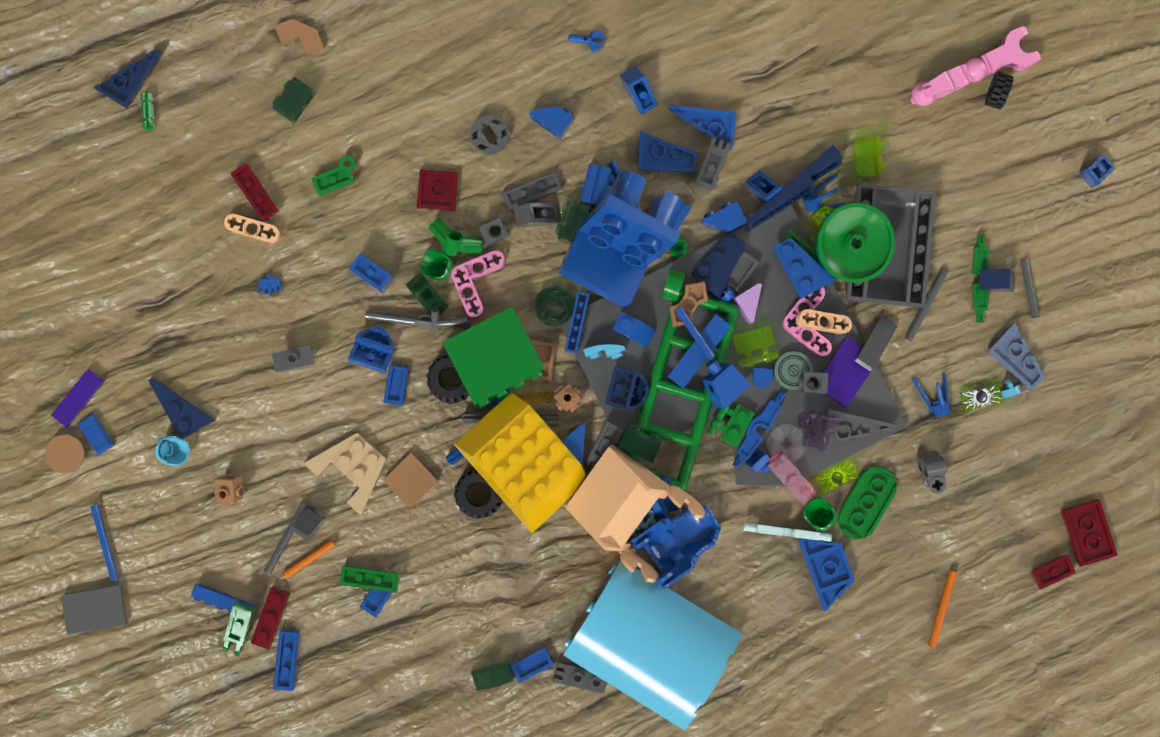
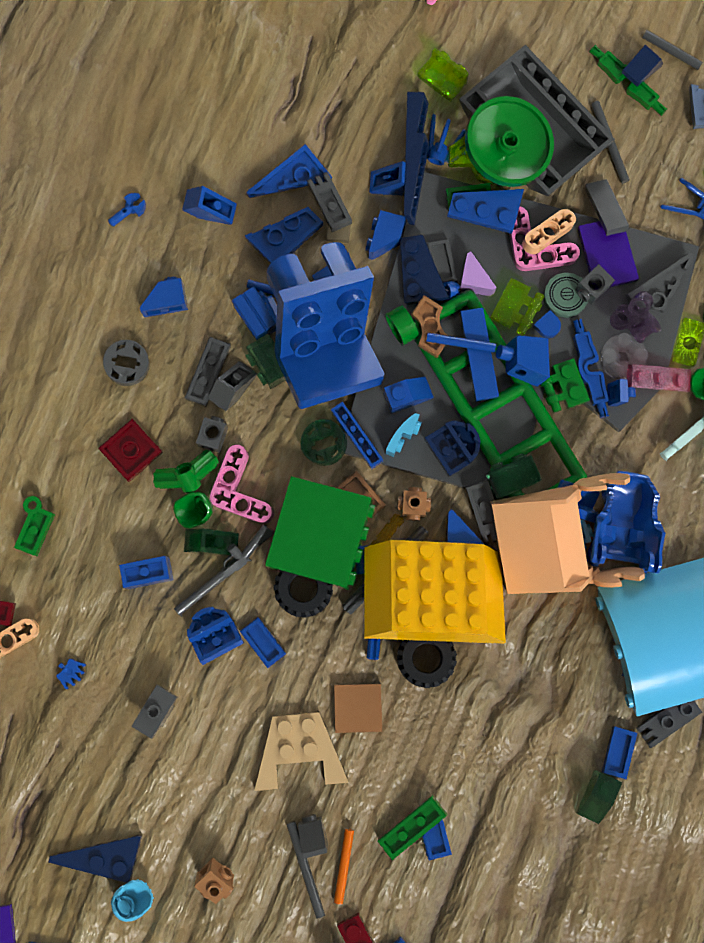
camera: 45 degrees left, 5 degrees down
(680, 249) = (377, 295): green tile -> none

